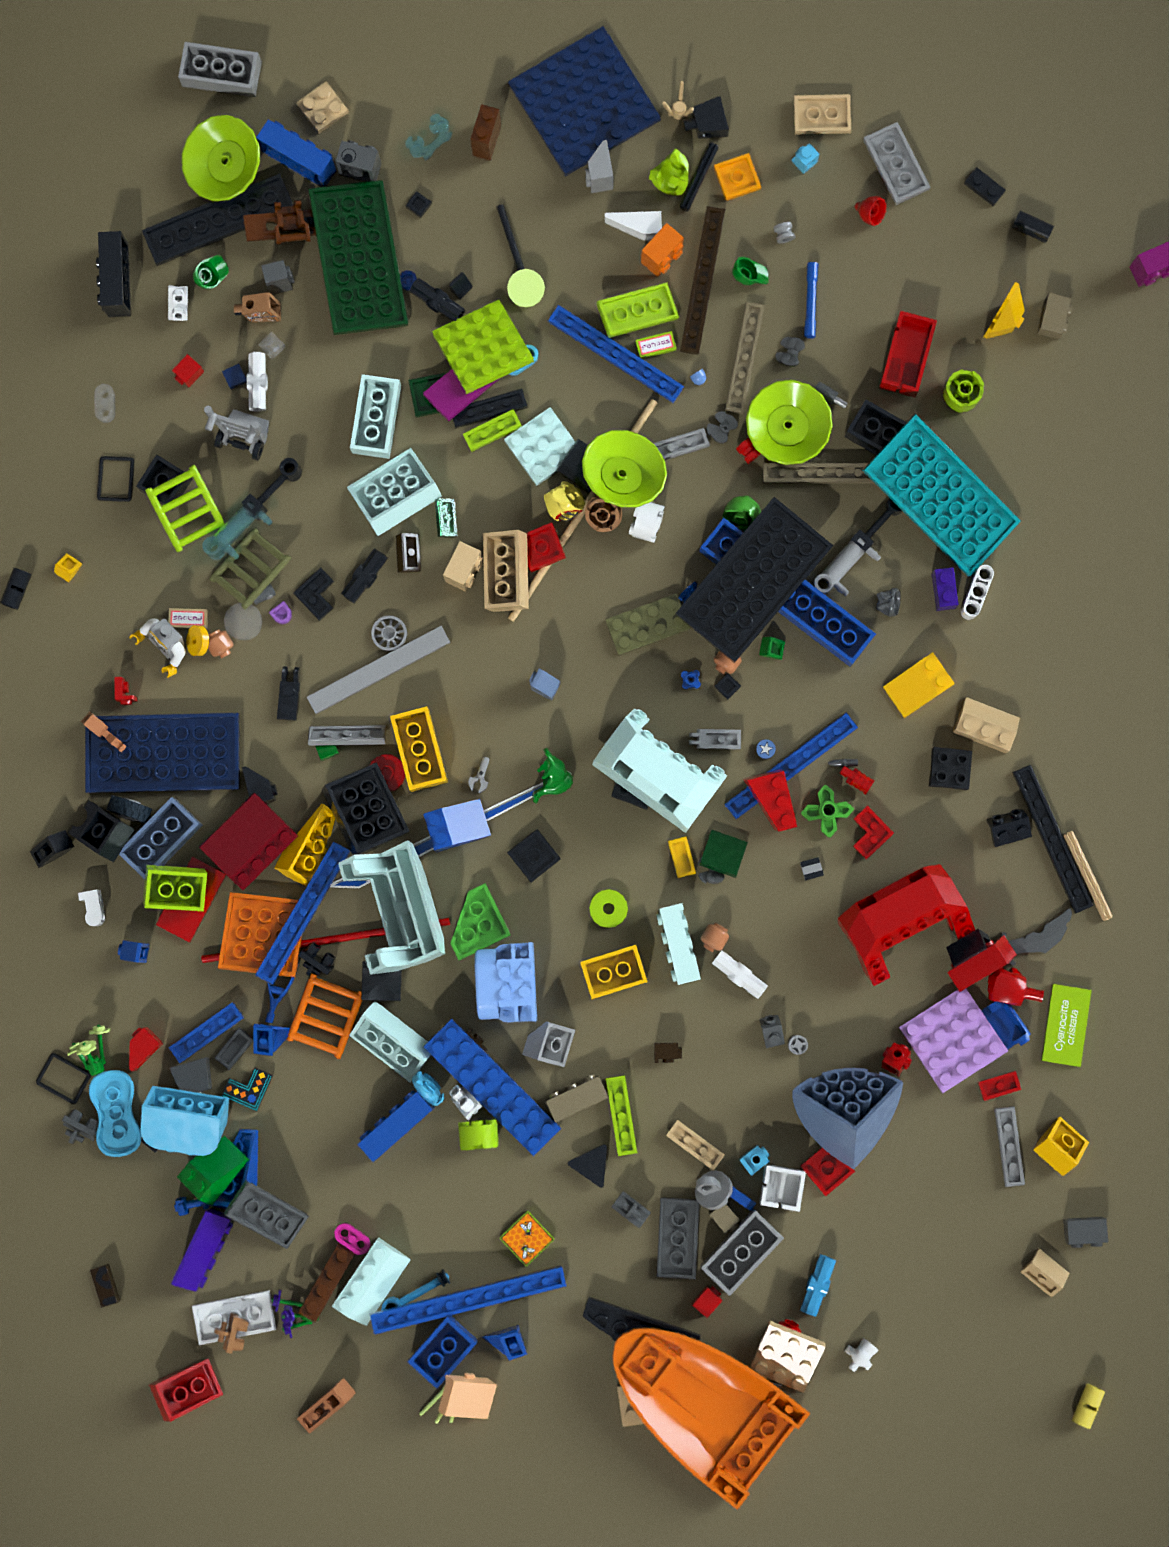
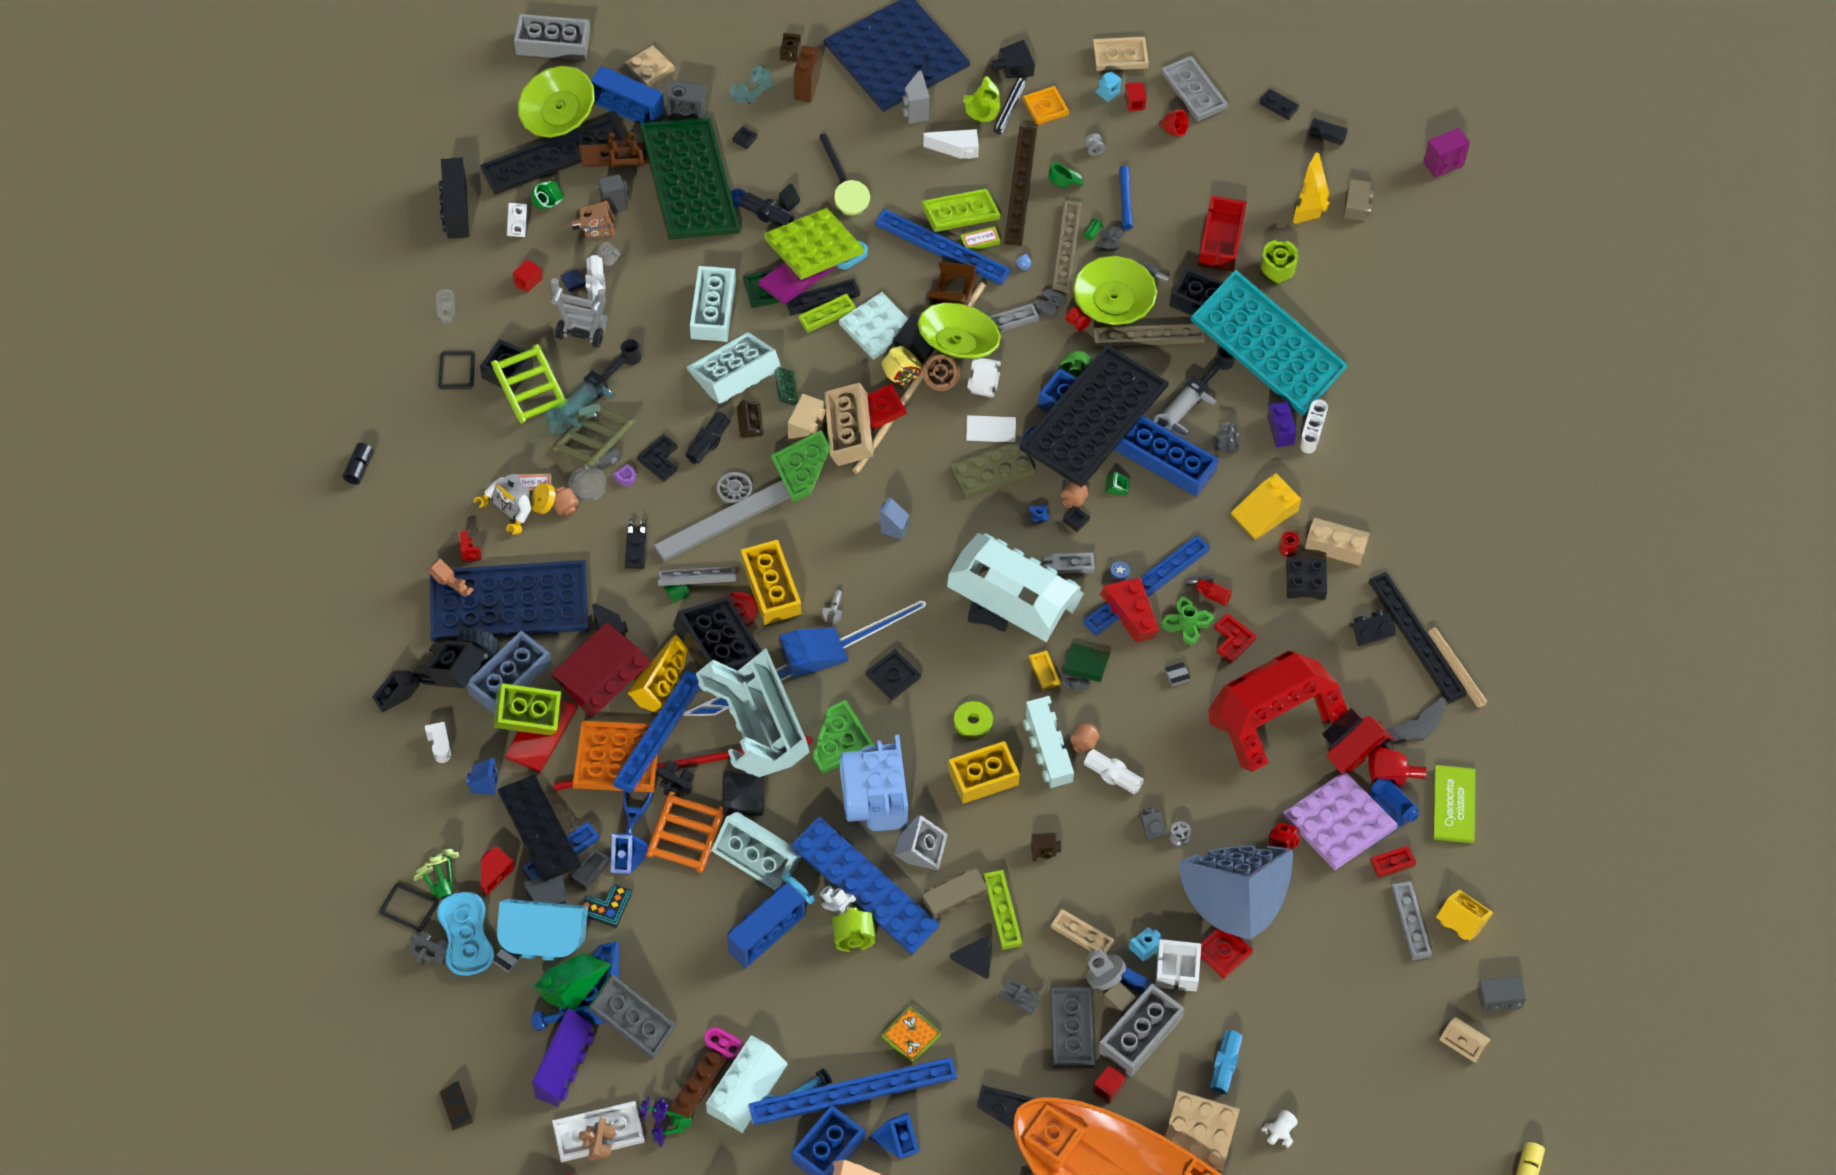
camera: 10 degrees left, 25 degrees down
(67, 567) = (409, 446): yellow slope -> none
(185, 1007) = (539, 828): none -> black plate
(246, 542) = (589, 411): none -> sand green plate
(456, 616) = (801, 464): none -> bright green plate
(476, 86) = (790, 47): none -> dark brown brick
(555, 778) = (910, 604): green piece -> none
(618, 387) = (948, 272): none -> reddish brown panel
(650, 575) = (991, 428): none -> white sticker
(662, 250) = (980, 159): orange brick -> none
(678, 108) = (986, 54): tan plant -> none
(773, 339) = (1093, 229): none -> green piece
(833, 171) = (1135, 96): none -> red brick
(934, 730) = (1289, 544): none -> red wheel

